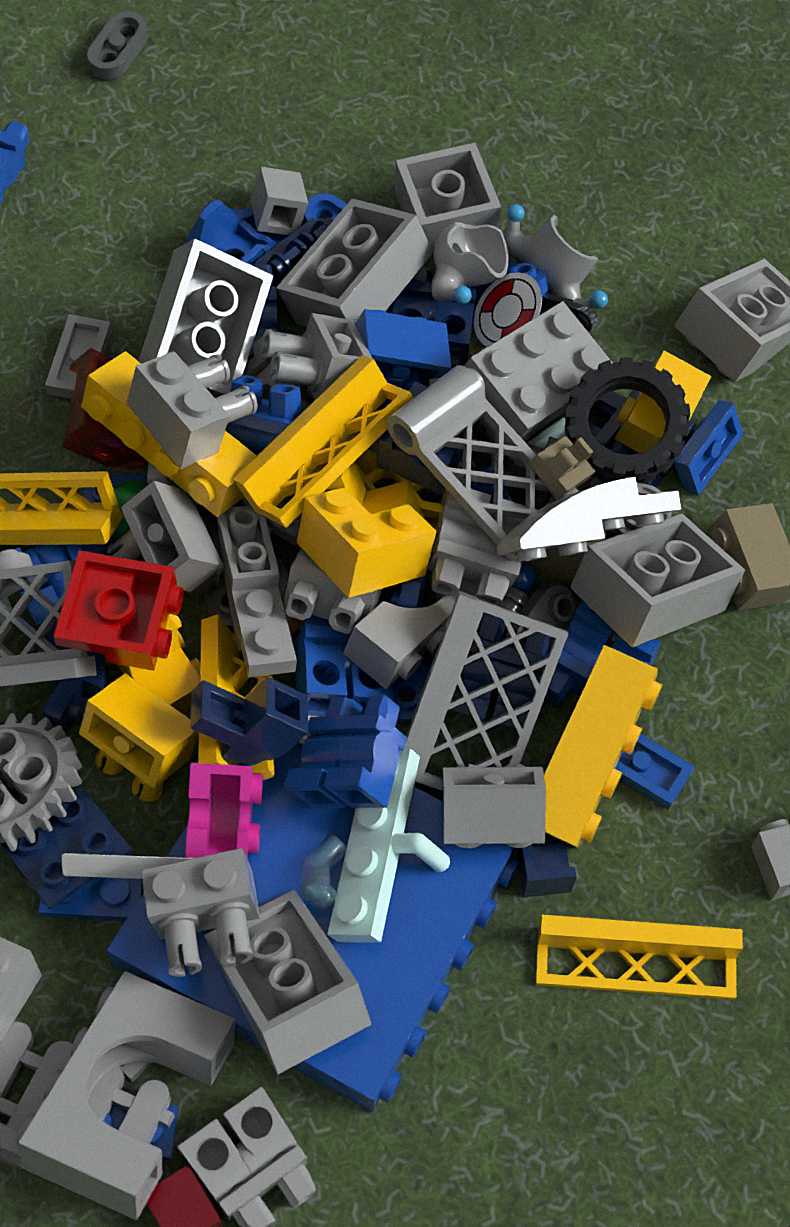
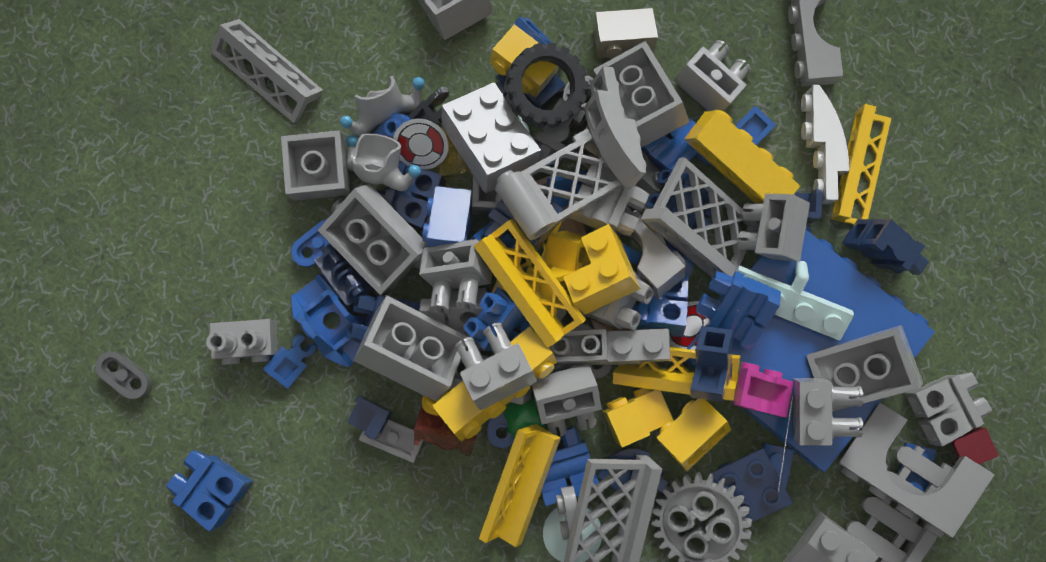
camera: 75 degrees left, 20 degrees up
(102, 317) = (369, 417): none -> dark blue panel
(119, 609) = (629, 436): red plate -> none
(161, 216) = (286, 364): none -> blue plate
(186, 157) = (243, 340): none -> light grey brick
(278, 201) = (294, 281): light grey brick -> none
(315, 872) = (800, 341): clear light blue arm -> none
(503, 1002) = (886, 245): none -> dark blue hips
(563, 466) = (574, 133): dark tan tile -> none
(572, 127) = (265, 63): none -> light grey fence
(675, 885) = (824, 132): none -> white slope
(711, 689) = (710, 80): none -> light grey brick

